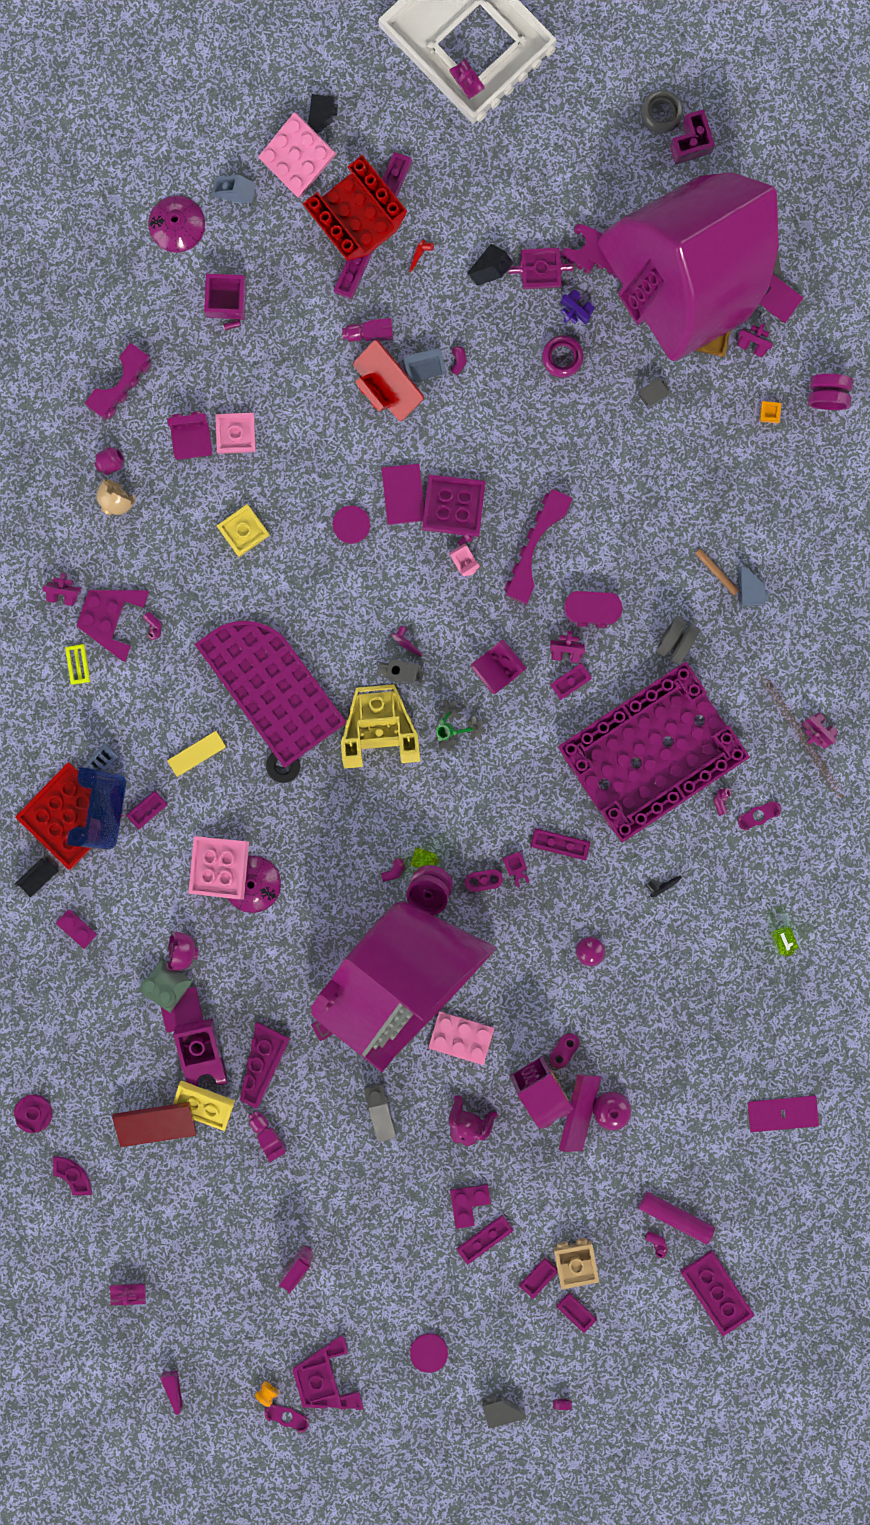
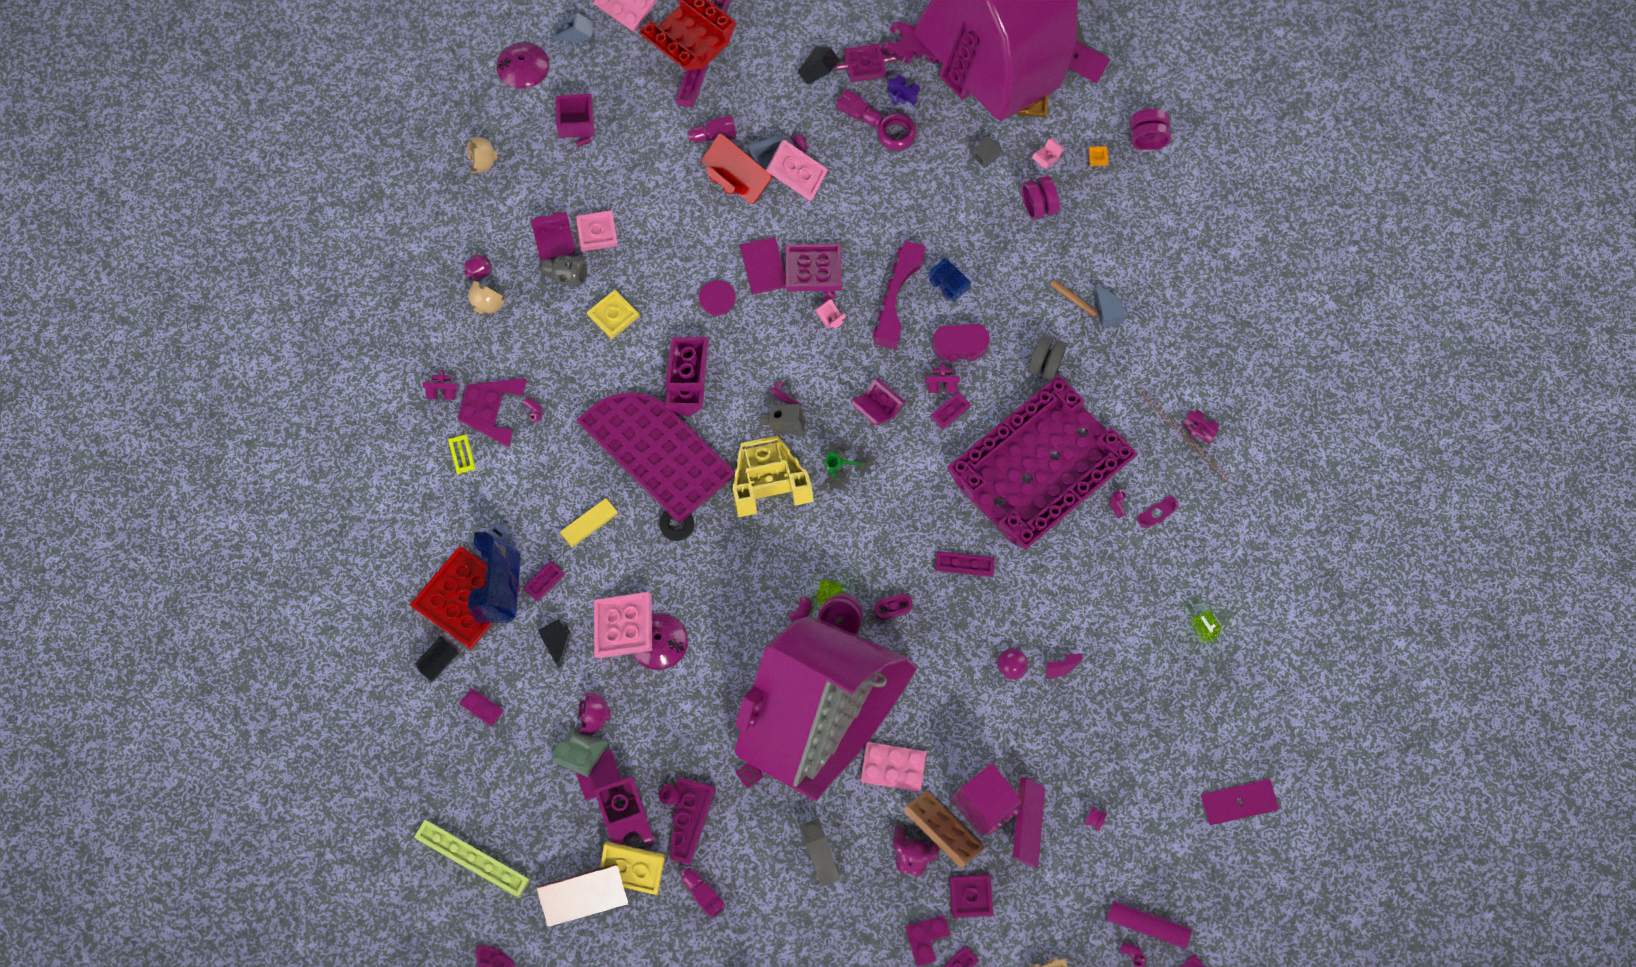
camera: 10 degrees left, 20 degrees down
(39, 1108) = (450, 903): magenta tile -> none
(55, 1075) = (472, 859): none -> yellowish green plate
(105, 401) = (468, 217): magenta arch -> none
(123, 330) = (482, 154): none -> tan cylinder
(153, 873) = (556, 640): none -> black slope
(198, 476) = (565, 270): none -> dark grey piece
(245, 1038) = (669, 794): none -> magenta tile
(310, 610) = (686, 374): none -> magenta slope
(420, 249) = (751, 61): red bar -> none
(451, 391) = (796, 170): none -> bright pink plate
(499, 1108) = (944, 829): none -> medium nougat plate
(515, 865) = (923, 588): magenta plate -> none
(515, 1170) = (971, 896): none -> magenta tile
(524, 323) = (857, 108): none -> magenta piece
(563, 1050) = (1003, 765): magenta plate -> none
(591, 536) = (949, 280): none -> clear blue brick
(612, 1111) = (1062, 821): magenta cylinder -> none
(644, 1114) = (1096, 818): none -> magenta wheel
(645, 960) = (1062, 668): none -> magenta slope
(663, 887) = (1075, 592): black bar -> none
(700, 457) = (1040, 197): none -> magenta wheel
(718, 404) = (1049, 154): none -> bright pink bracket
(762, 344) = (1080, 100): magenta hips -> none

